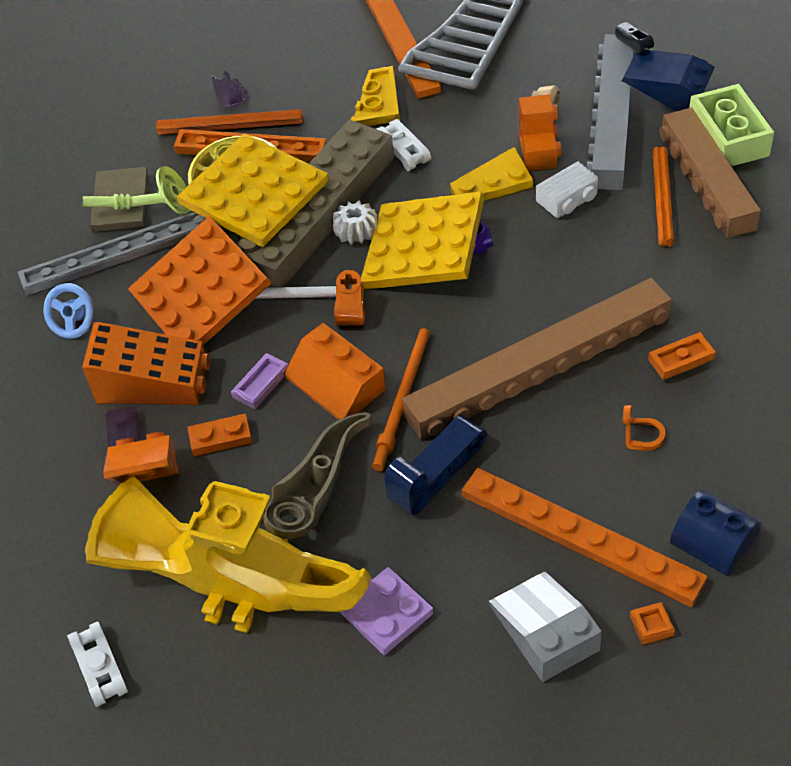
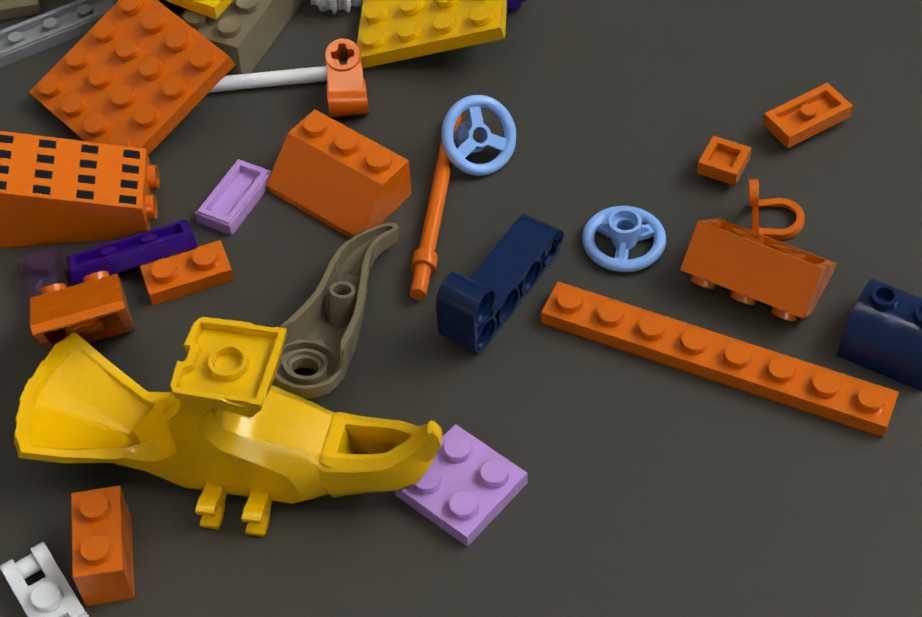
camera: 10 degrees left, 0 degrees up
(136, 629) = (102, 546): none -> orange brick
(183, 416) = (132, 251): none -> dark purple tile
(428, 347) = (464, 135): none -> light blue piece
(532, 432) = (624, 229): none -> light blue piece
(536, 358) = (610, 136): medium nougat brick -> none
(547, 625) = (693, 479): light grey slope -> none
(613, 386) = (724, 160): none -> orange plate
(622, 471) = (756, 268): none -> orange slope
(652, 623) = (834, 462): orange tile -> none

